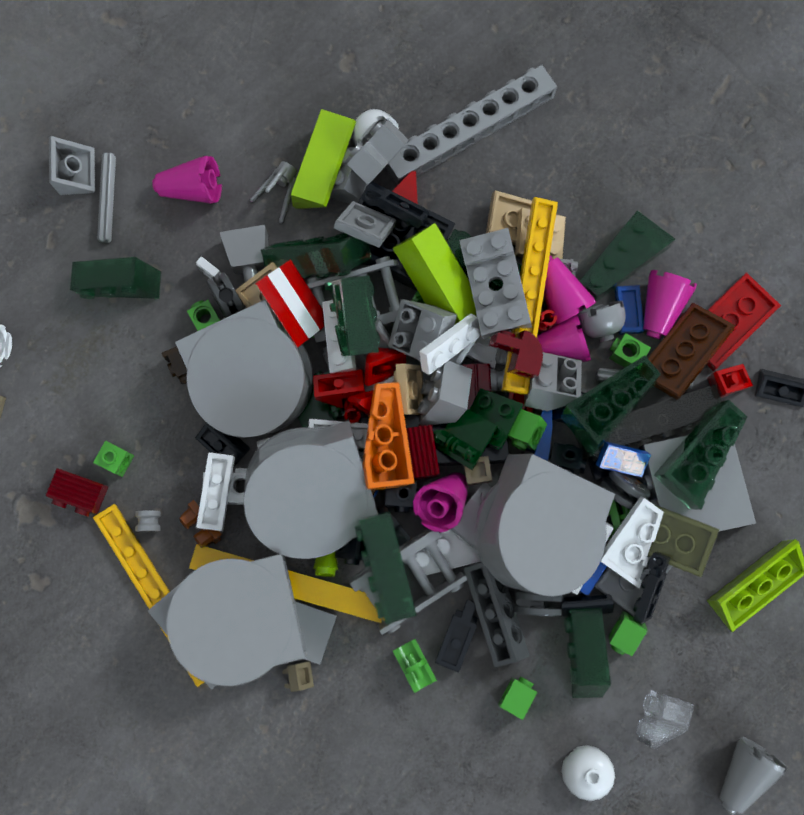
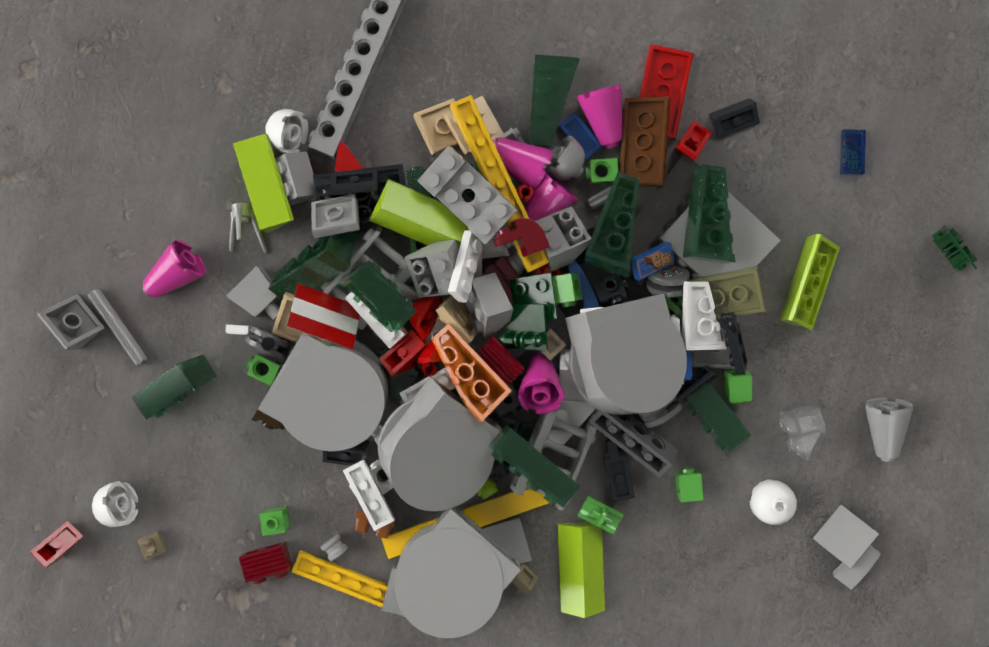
camera: 35 degrees left, 10 degrees up
(360, 707) = (581, 569): none -> lime slope
(377, 152) = (302, 149): light grey brick -> none

